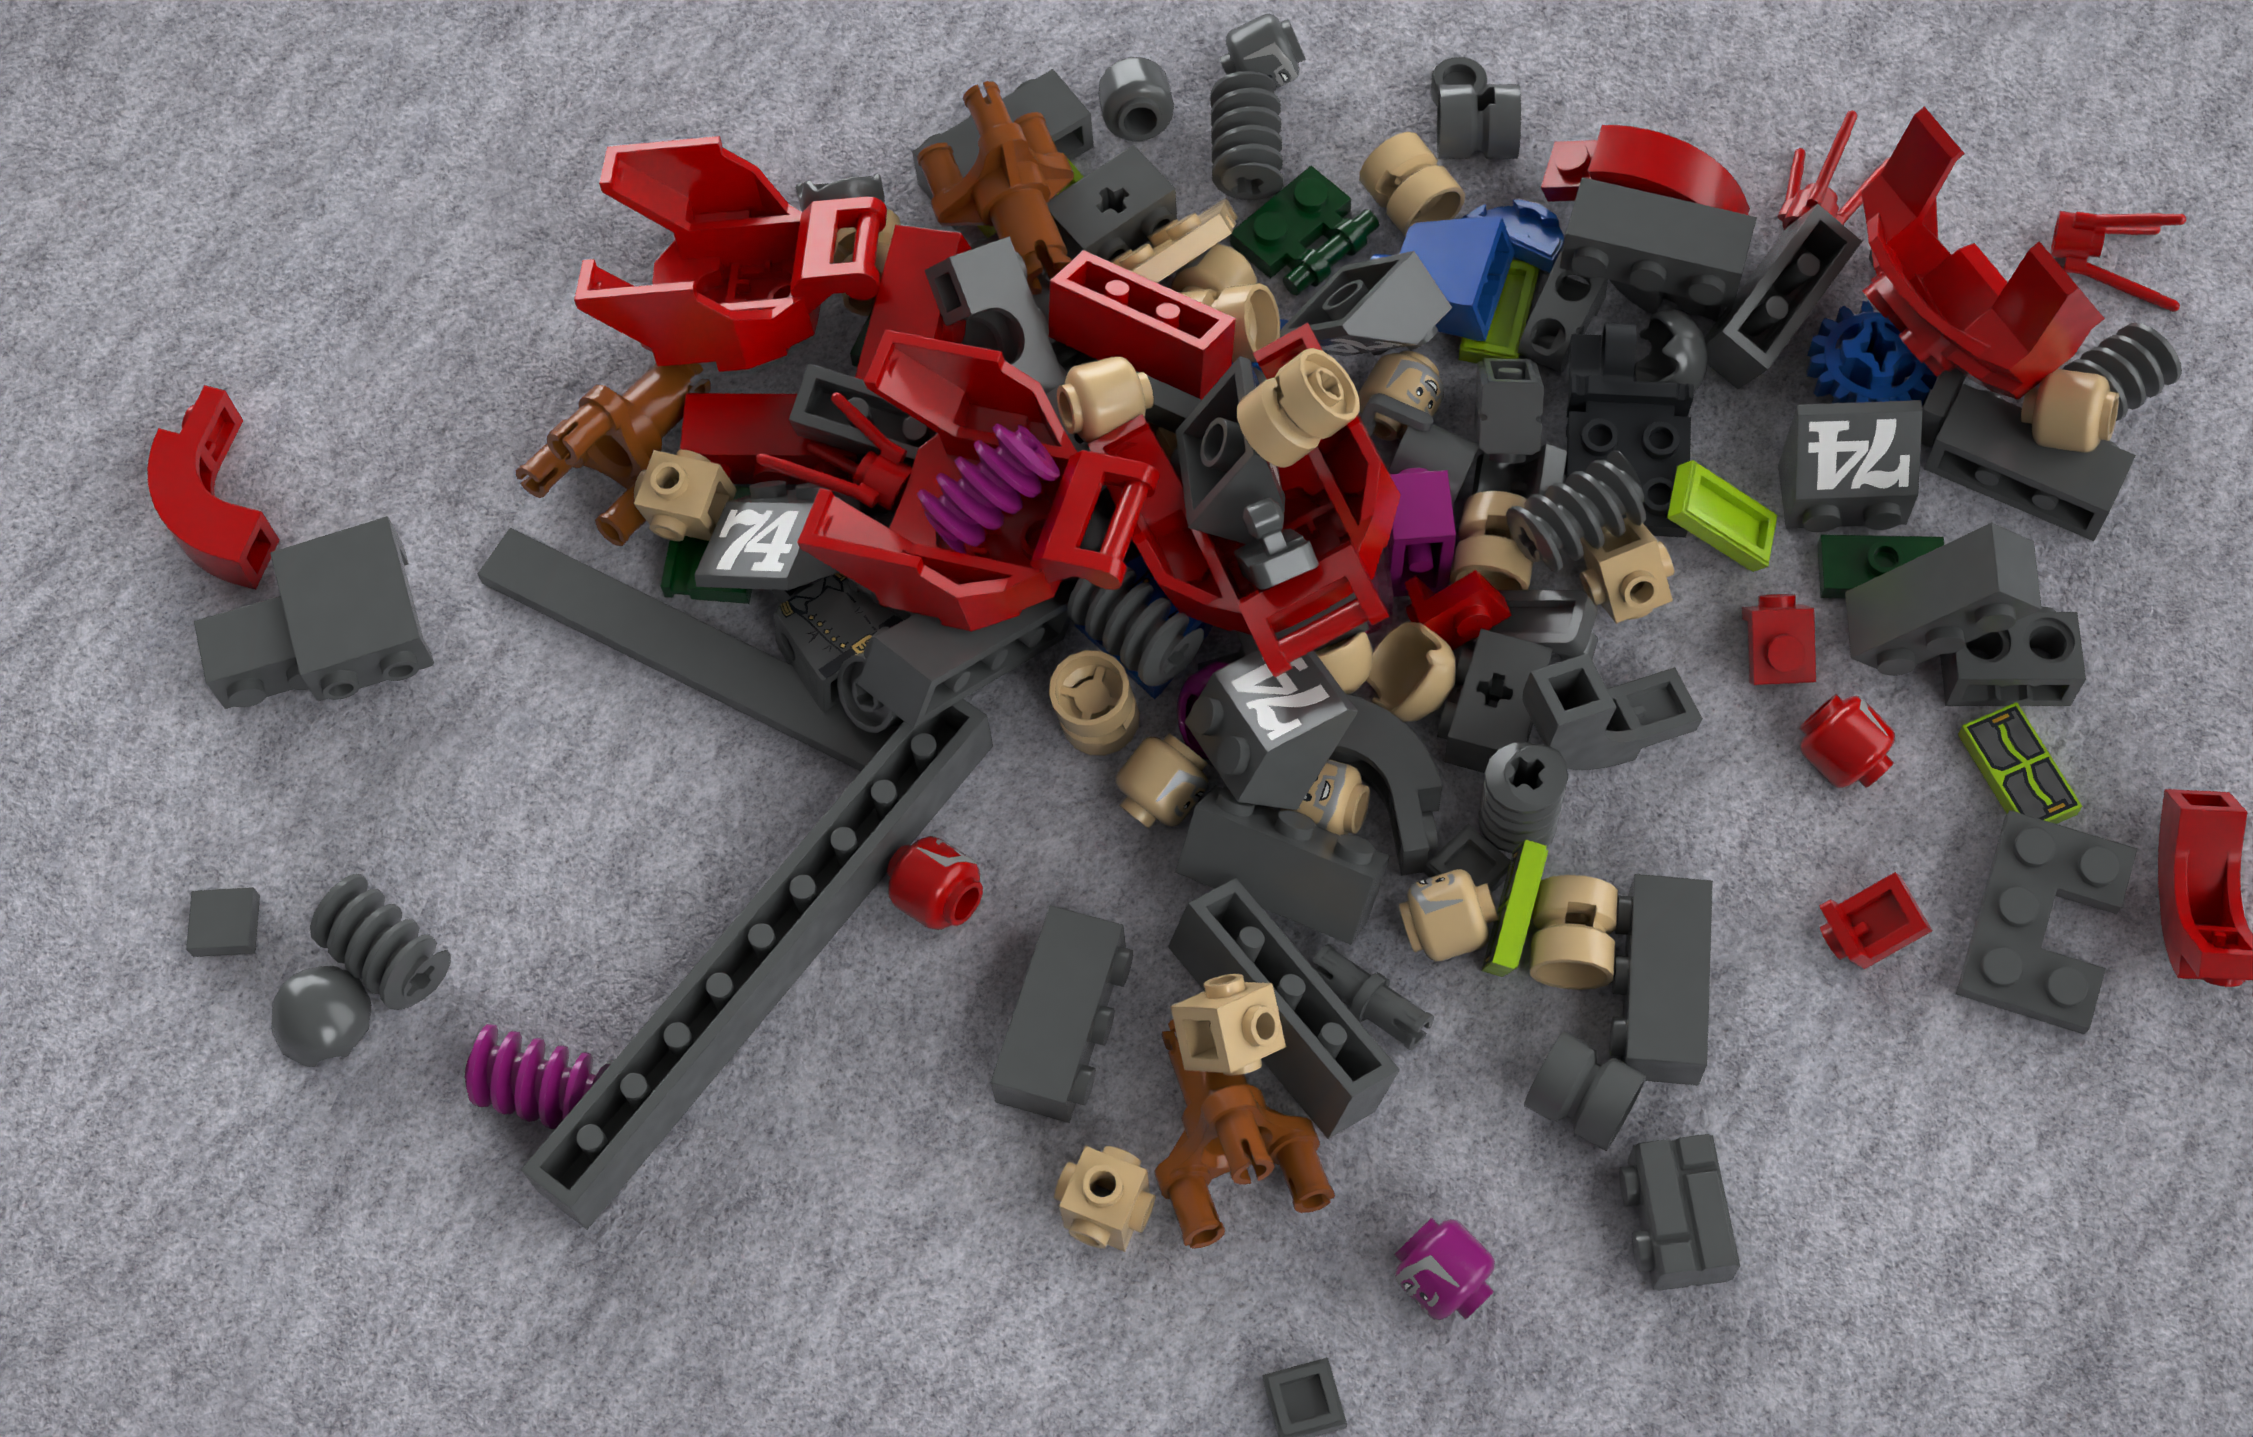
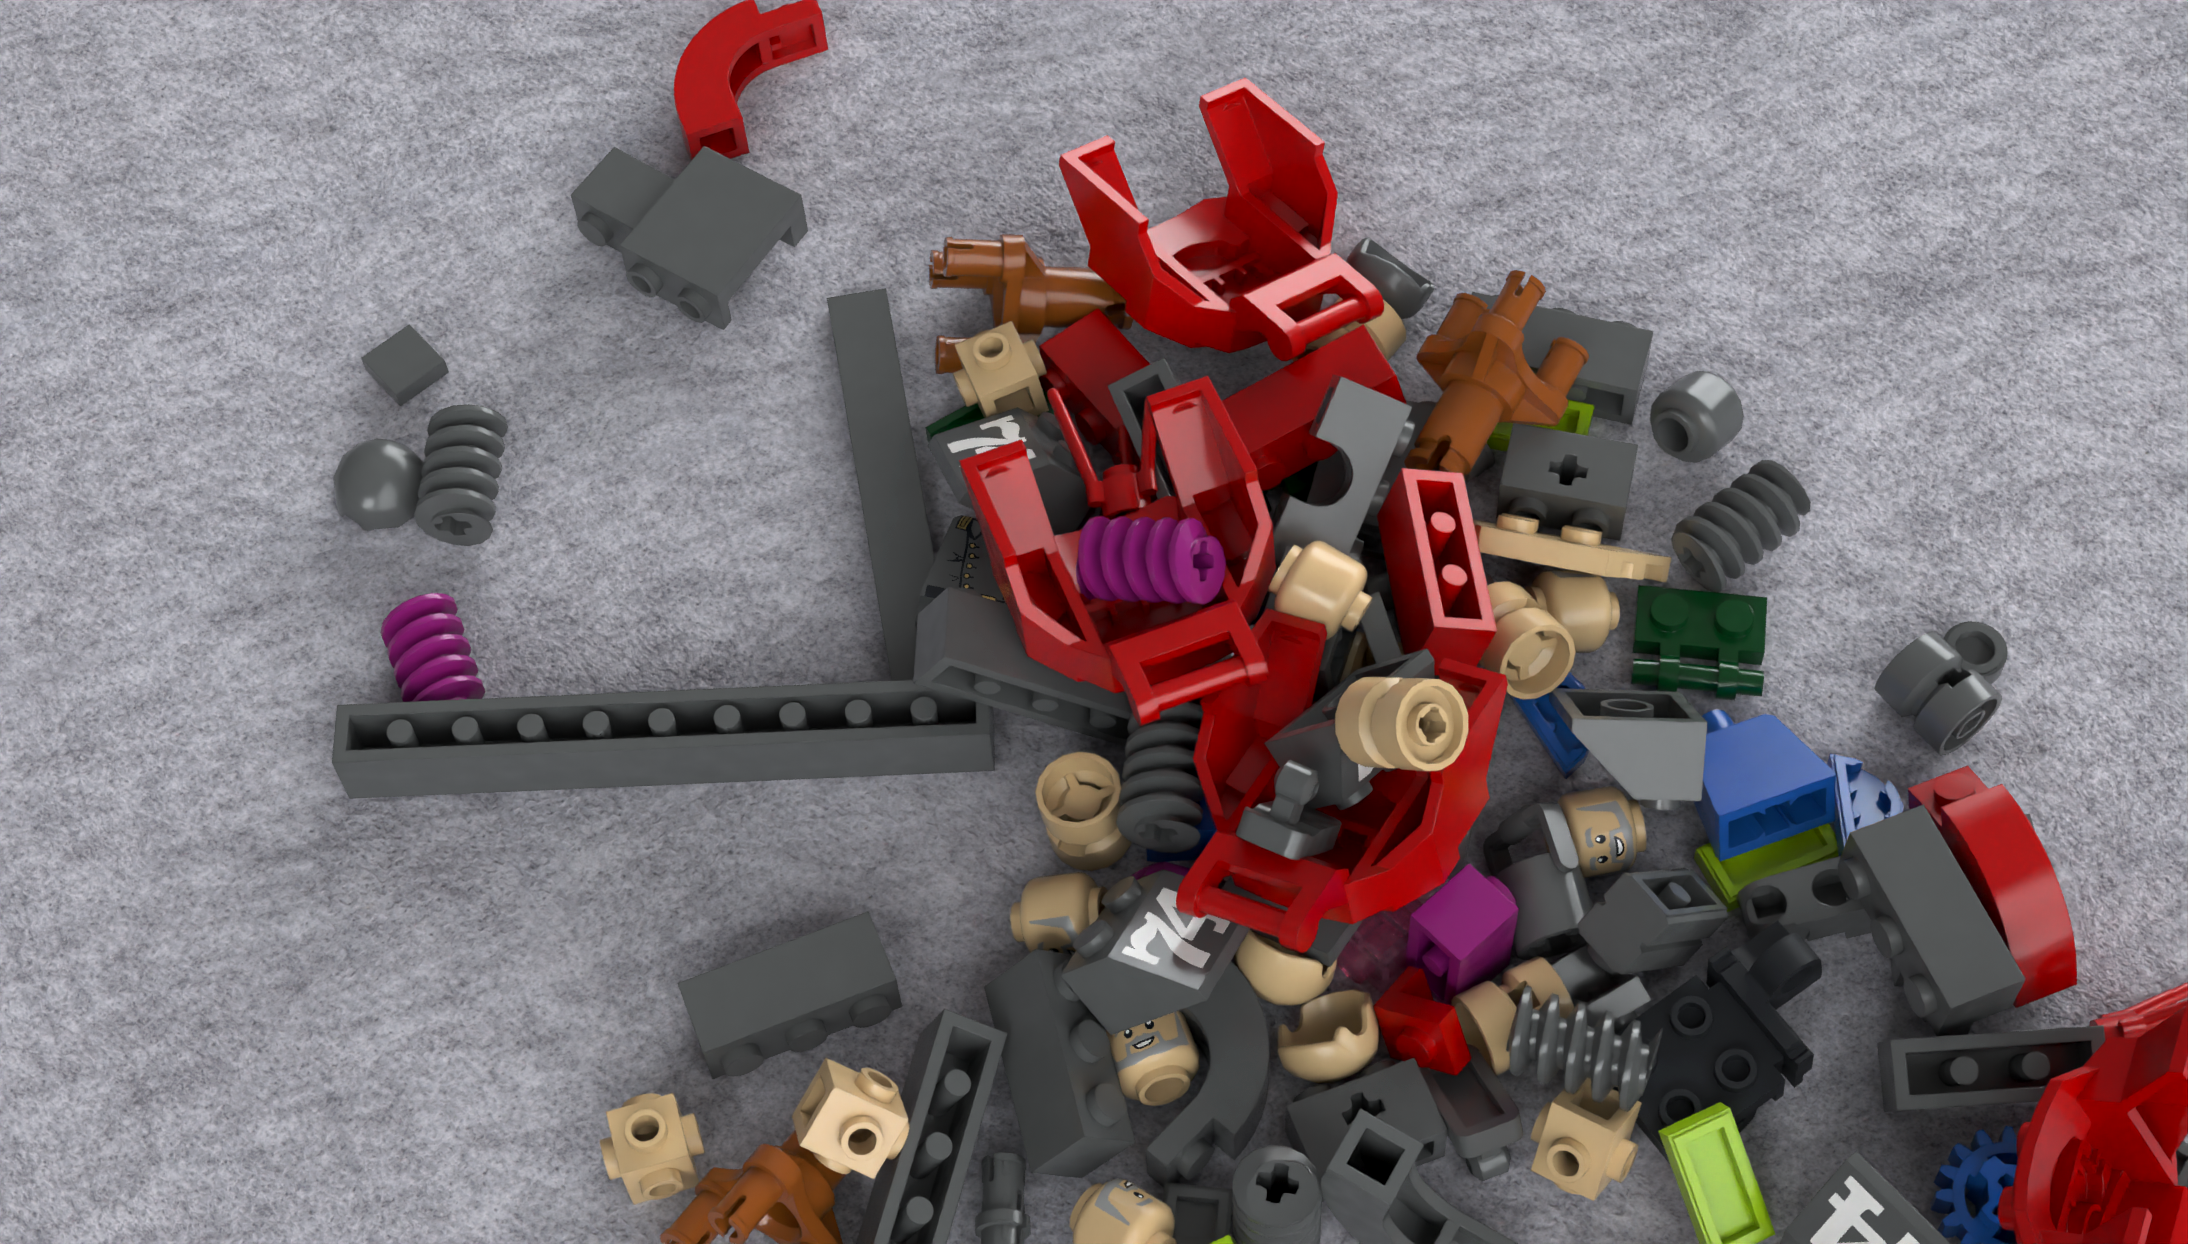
camera: 50 degrees right, 5 degrees down
(934, 883) = (827, 816): red head -> none
(1265, 48) = (1840, 477): dark grey head -> none
(1409, 182) = (1818, 686): tan wheel -> none
(1676, 351) = (1851, 1031): dark grey hair -> none

